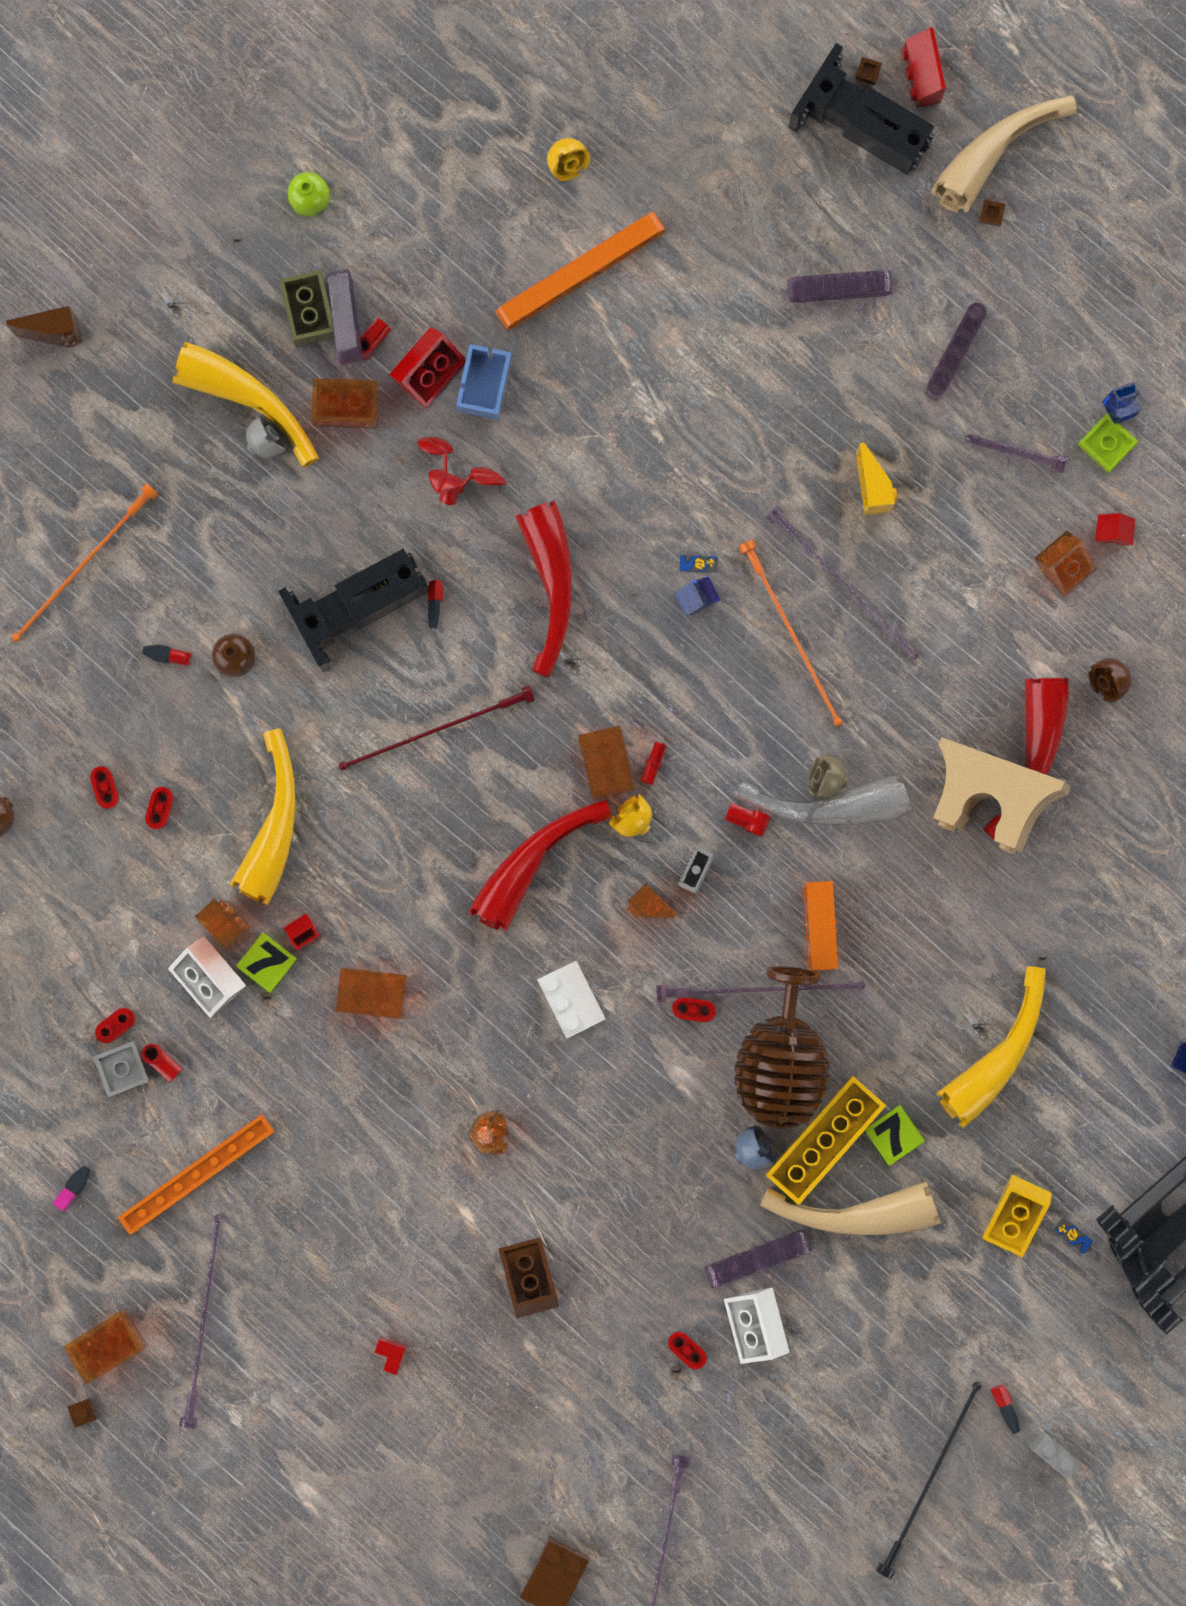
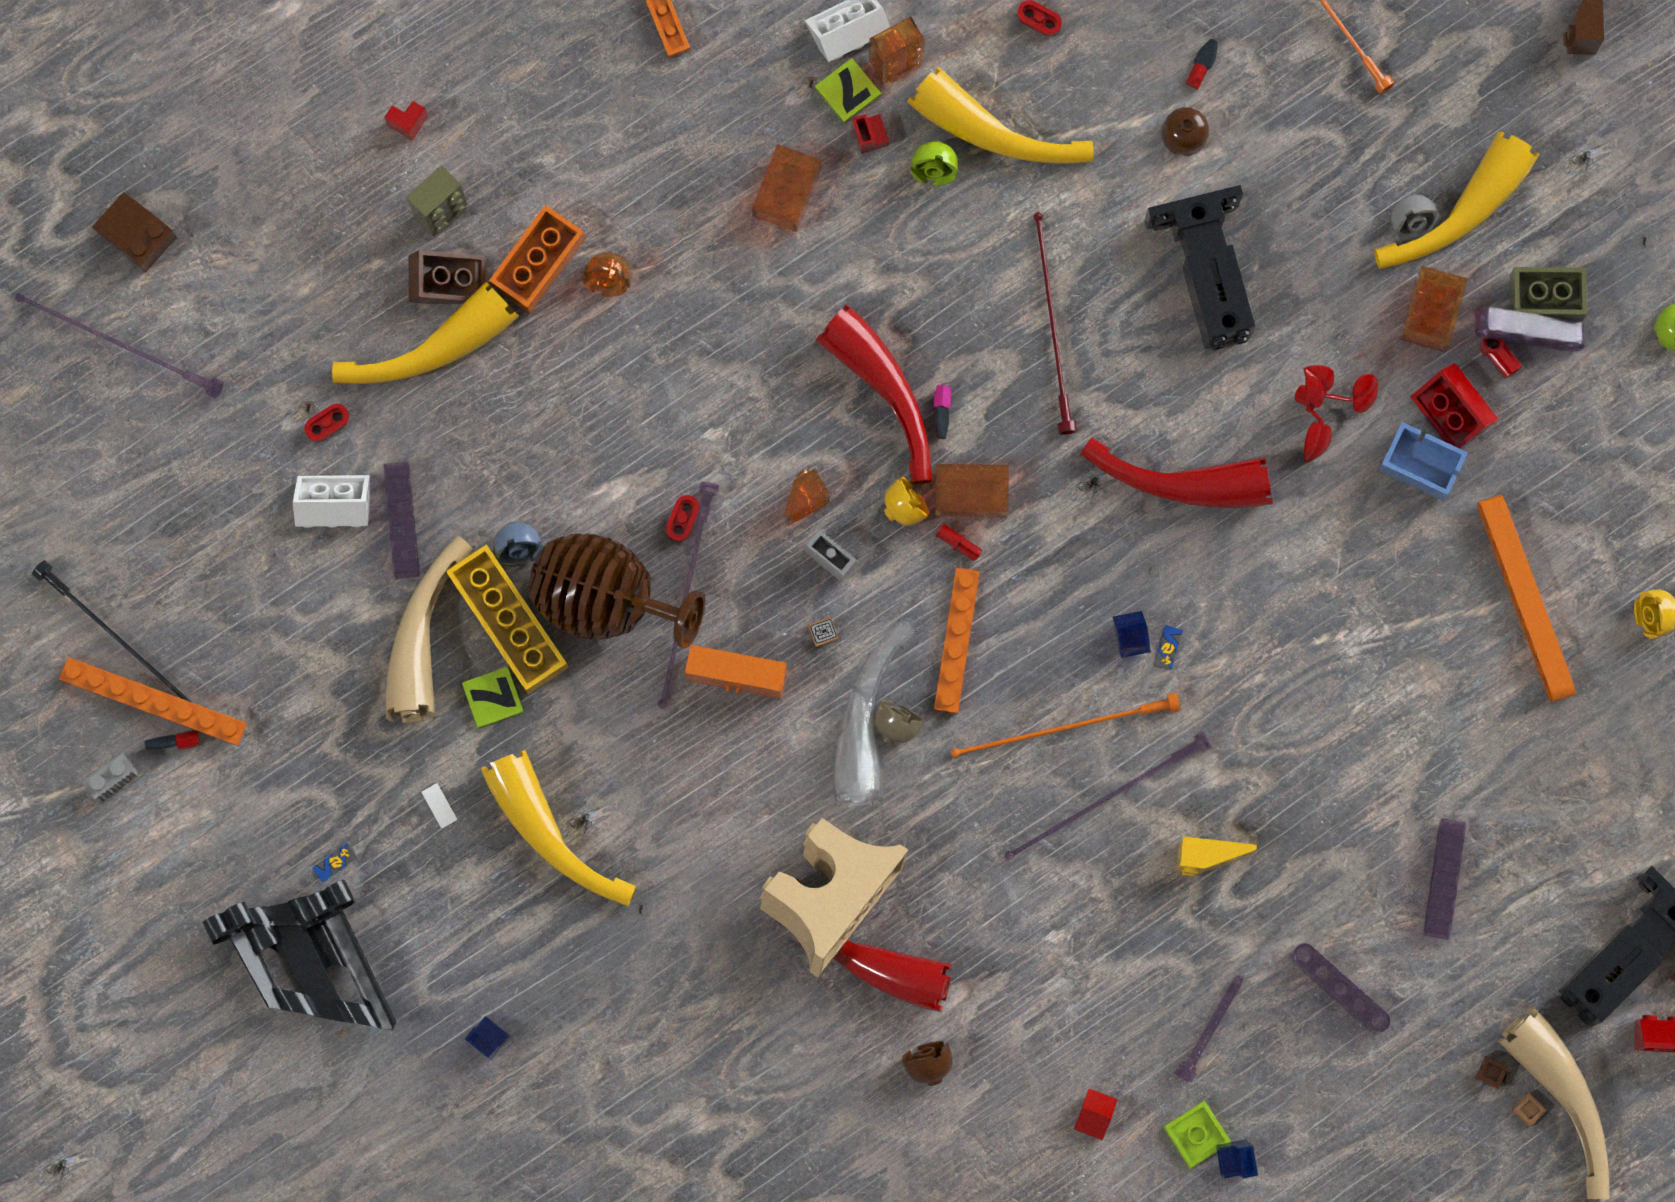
camera: 105 degrees right, 5 degrees down
(316, 867) = (934, 162): none -> lime cylinder
(435, 596) = (1200, 357): piece -> none
(464, 1303) = (437, 201): none -> olive brick
(492, 1200) = (537, 259): none -> orange brick
(532, 808) = (942, 403): none -> piece
(571, 999) = (726, 392): white slope -> none
(575, 1247) = (463, 332): none -> yellow brick
(740, 744) = (956, 641): none -> orange plate
(753, 821) = (869, 632): red piece -> none
(762, 861) = (823, 632): none -> tile
(976, 1436) = (153, 701): none -> orange plate
(999, 1157) = (439, 805): none -> white sticker
(1013, 176) = (1529, 1109): none -> medium nougat tile
(1017, 1215) = (372, 805): yellow slope -> none
(1065, 562) = (1070, 1048): clear orange slope -> none

